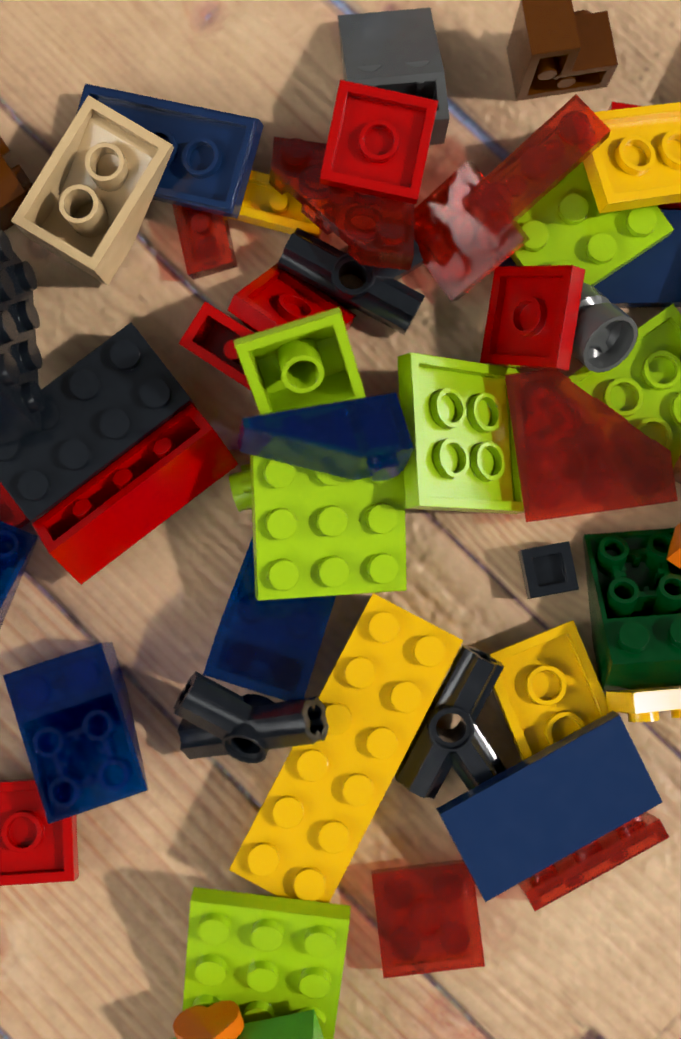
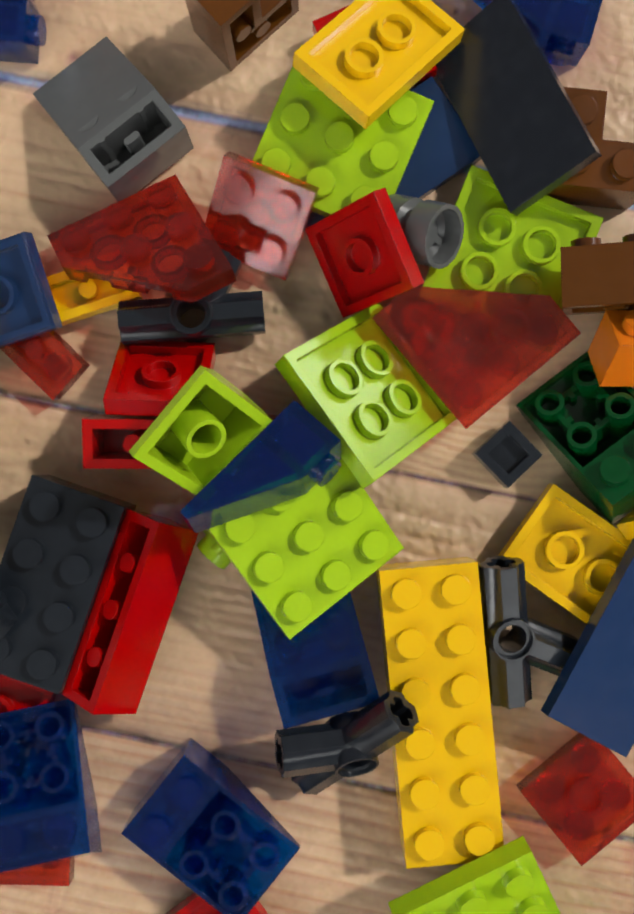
camera: 30 degrees left, 5 degrees up
(378, 142) = (138, 187): red plate -> none
(535, 167) = (287, 123): clear red plate -> none

